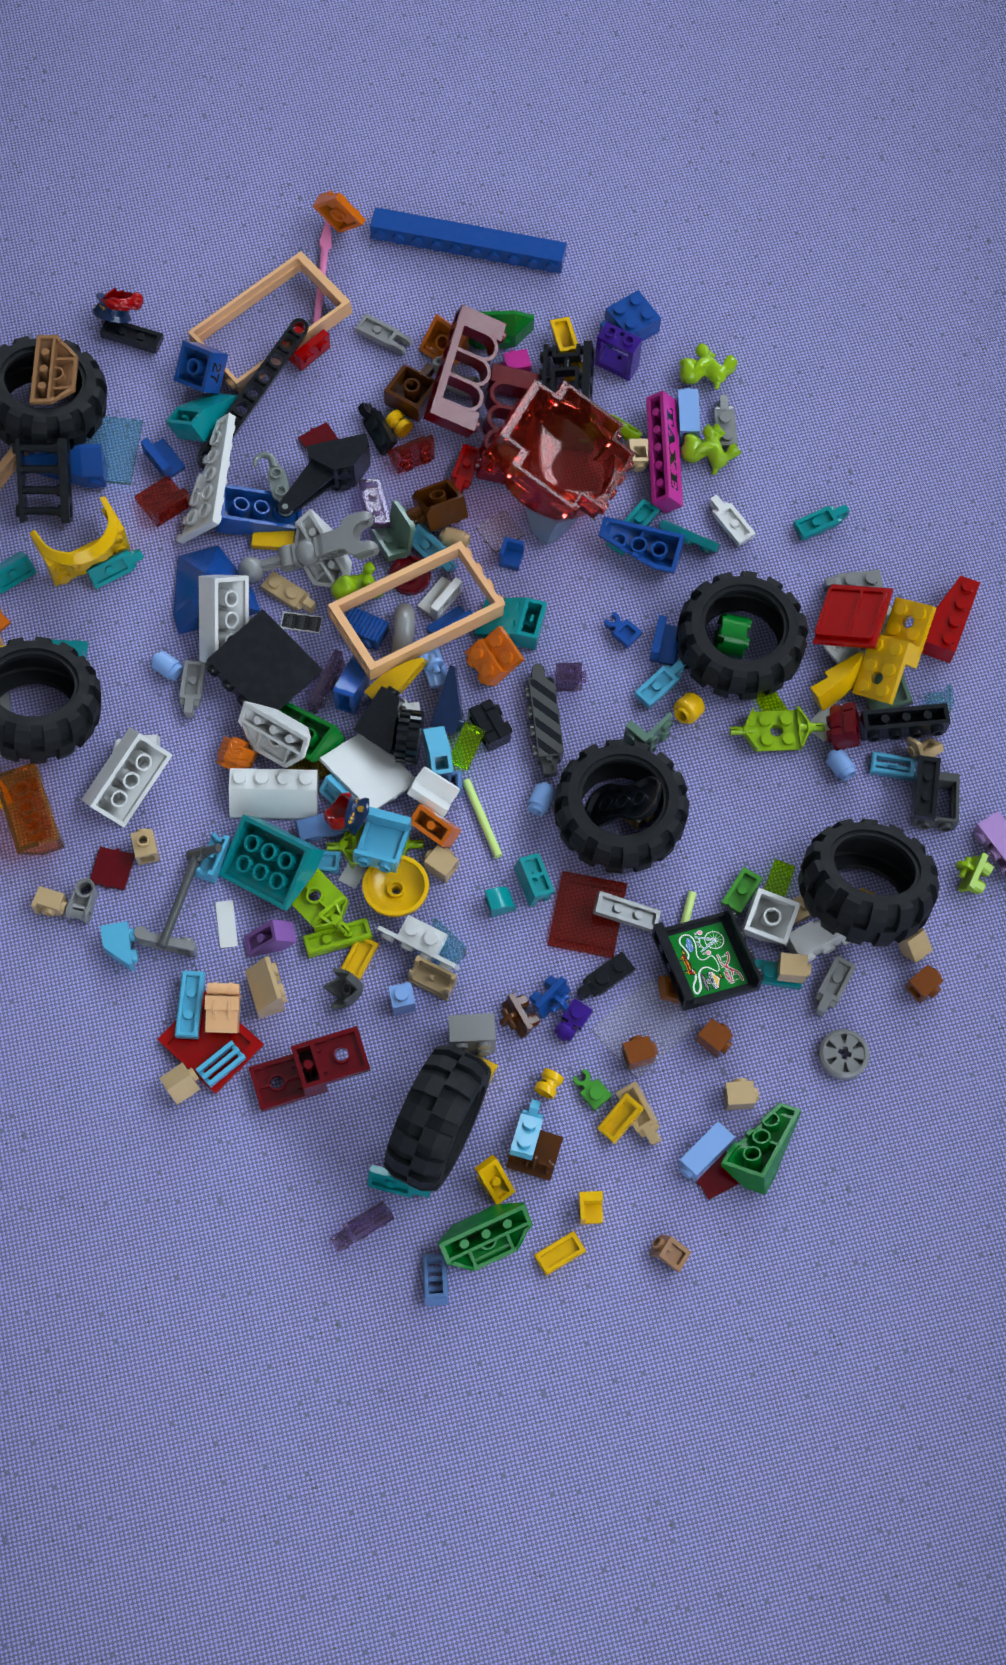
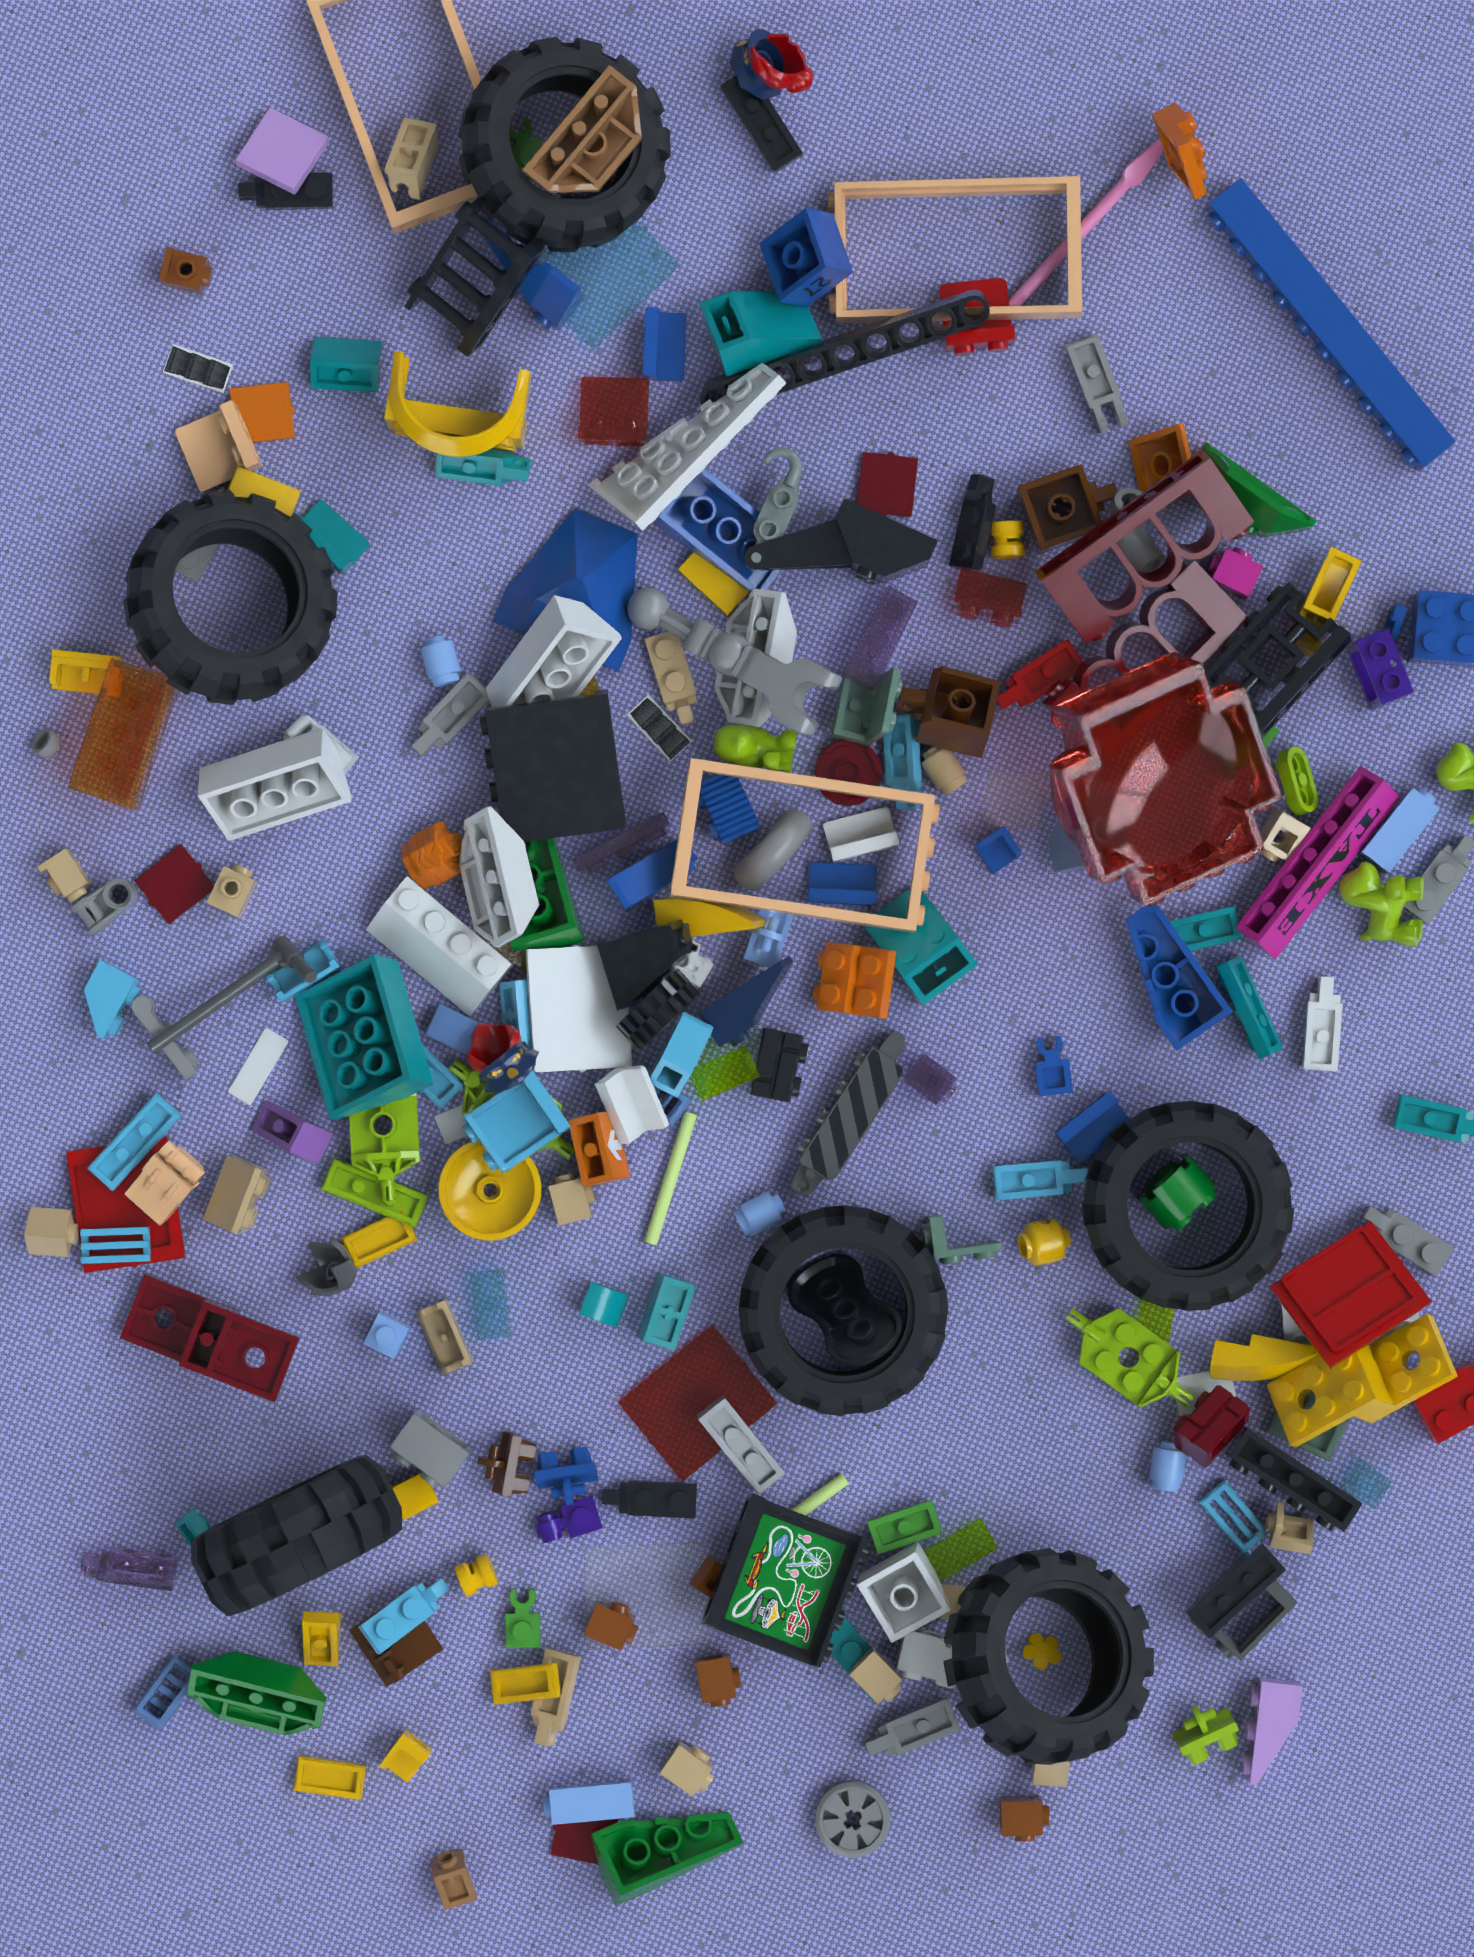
camera: 45 degrees right, 20 degrees up
(423, 938) = (466, 1283): white bracket -> none

